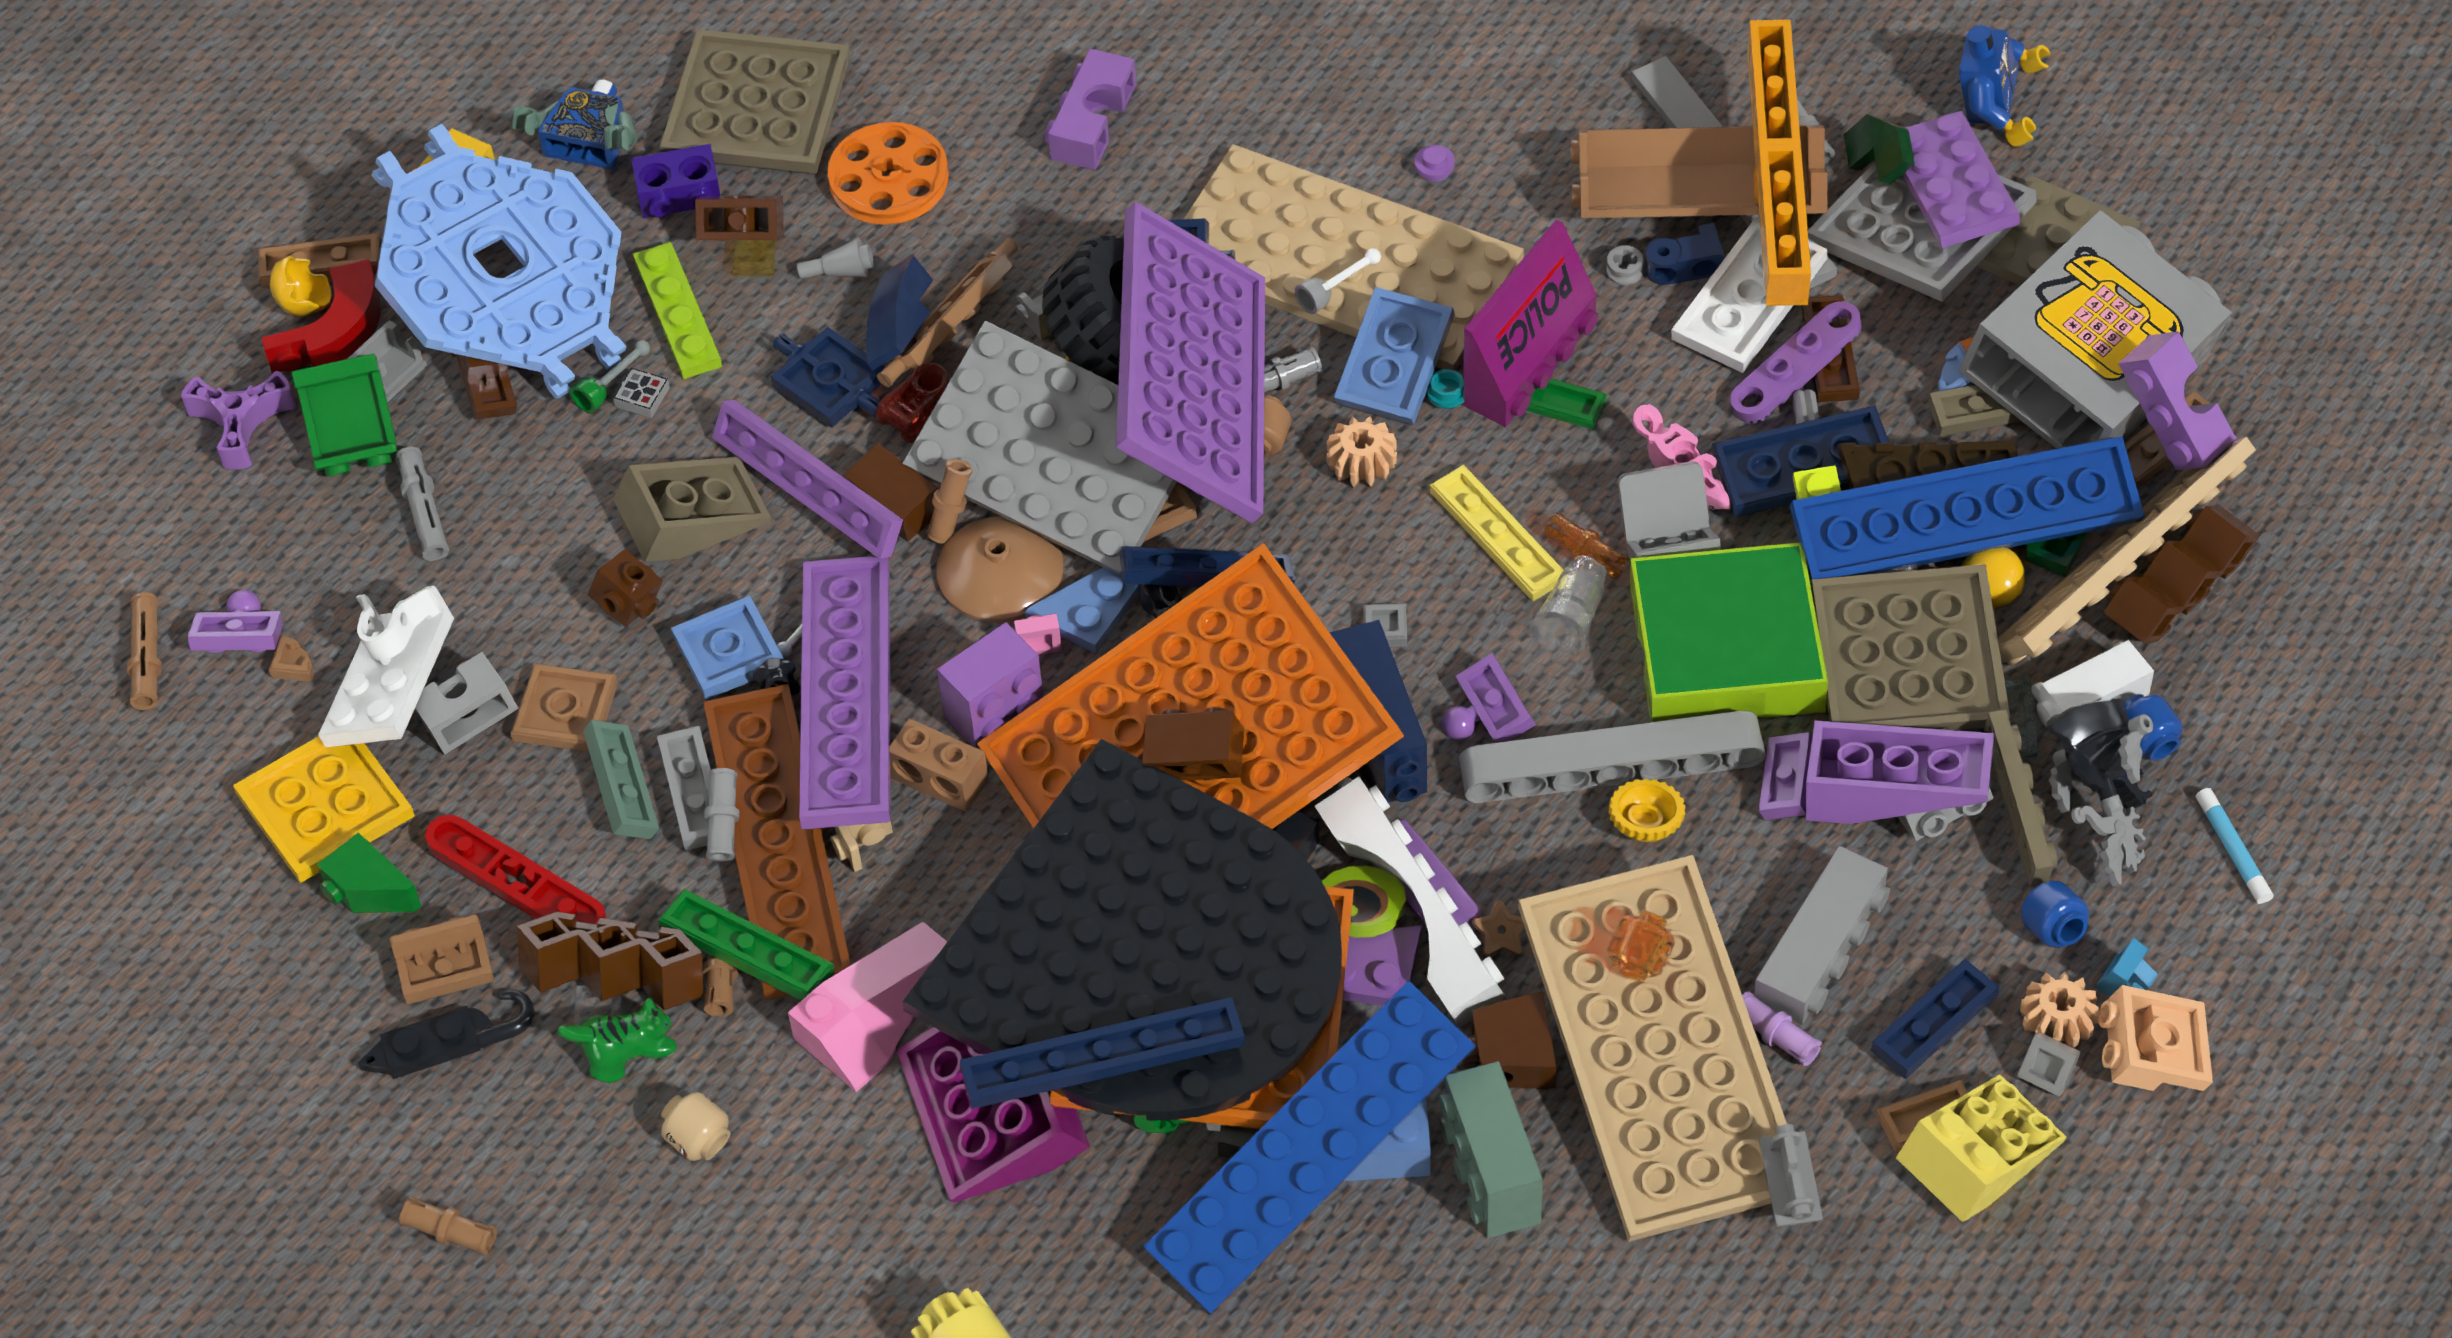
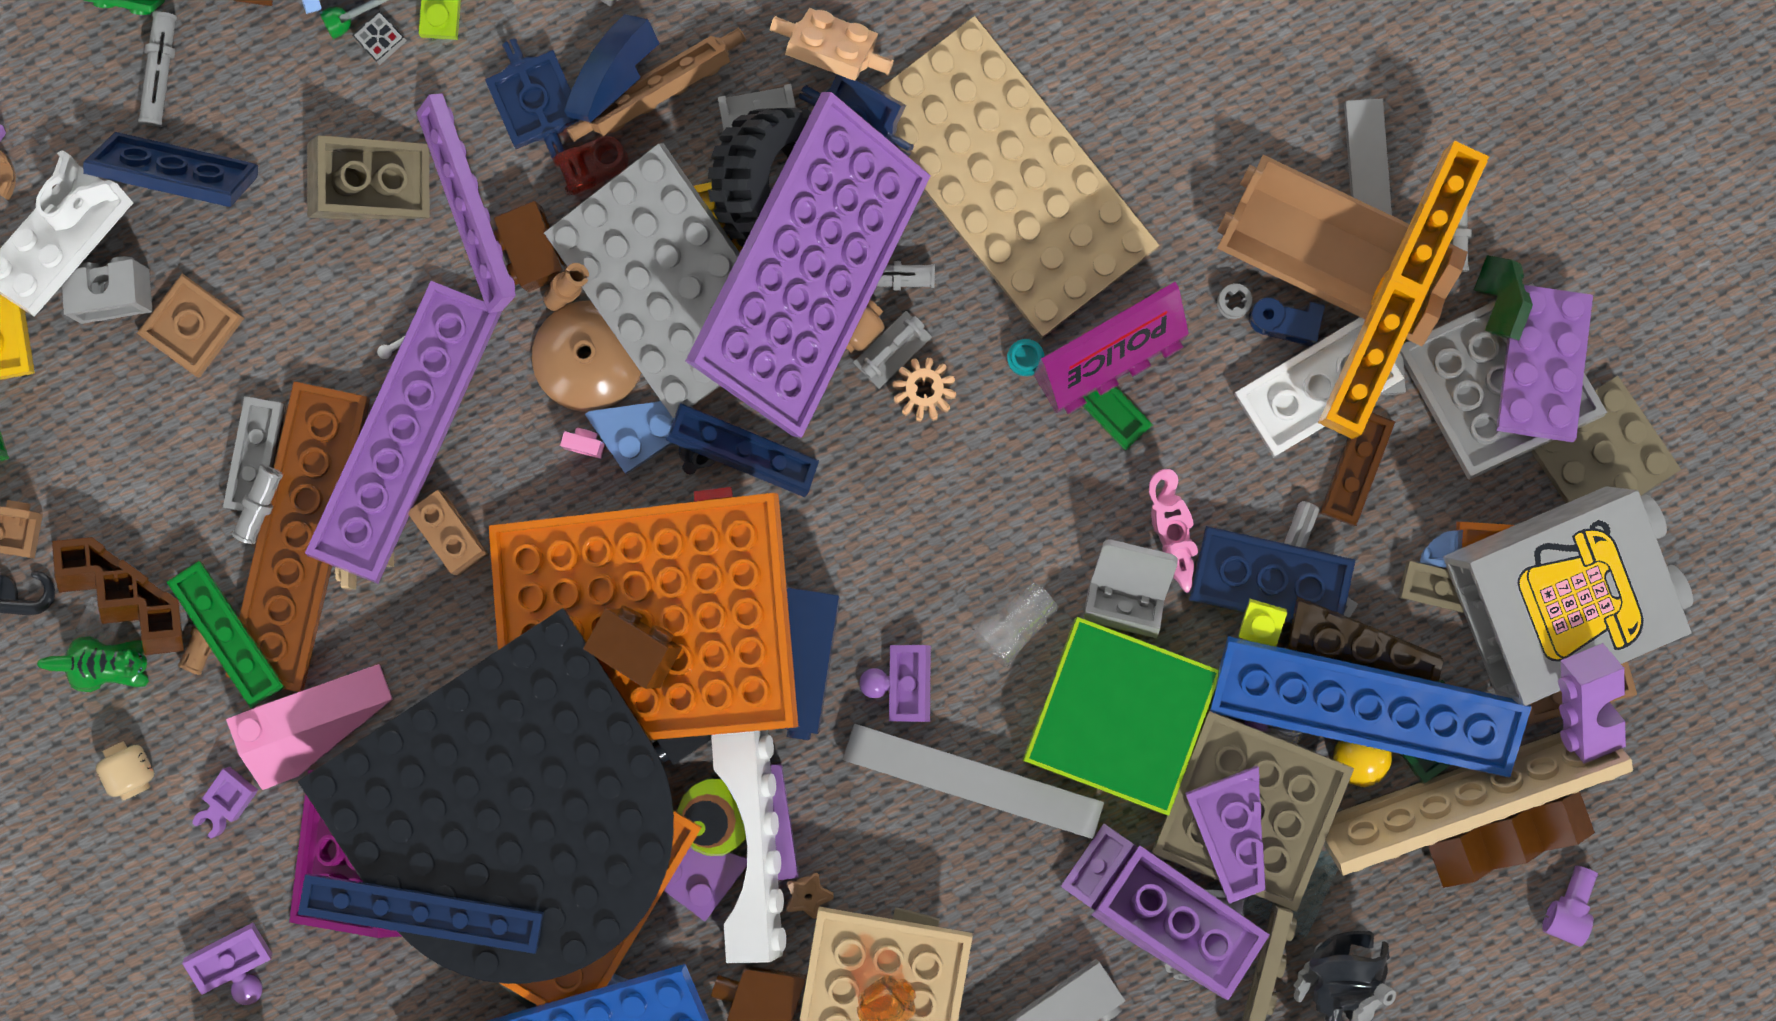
camera: 20 degrees right, 30 degrees up
(482, 567) = (171, 169): none -> dark blue tile
(485, 859) = (67, 442): red piece -> none
(620, 779) = (201, 422): sand green plate -> none
(626, 588) = (282, 229): reddish brown brick -> none
(725, 646) = (337, 333): medium blue plate -> none
(774, 670) = (361, 382): black plate -> none
(820, 1106) = (227, 800): none -> medium lavender plate
(903, 1258) = (228, 961): none -> medium lavender plate
(989, 683) = (517, 487): medium lavender brick -> none
(1089, 210) = (832, 44): none -> light nougat plate
(1309, 434) = (892, 349): none -> light grey hinge
(1316, 293) = (961, 217): hinge -> none
(1392, 620) = (862, 563): light grey tile -> none
(1394, 355) = (995, 311): medium blue plate -> none
(1434, 163) = (1132, 116): medium lavender plate -> none
(1497, 532) = (996, 517): light yellow tile -> none
(1585, 543) = (1057, 568): clear orange pin -> none
(1646, 810) = (974, 845): yellow hat -> none
(1796, 361) = (1319, 474): medium lavender plate -> none
(1896, 664) = (1231, 828): none -> medium lavender wing
(1990, 76) = (1639, 264): blue torso -> none
(2111, 674) = (1381, 906): white brick -> none
(2166, 725) = (1407, 964): blue head -> none
(2284, 619) = (1570, 915): none -> medium lavender pin

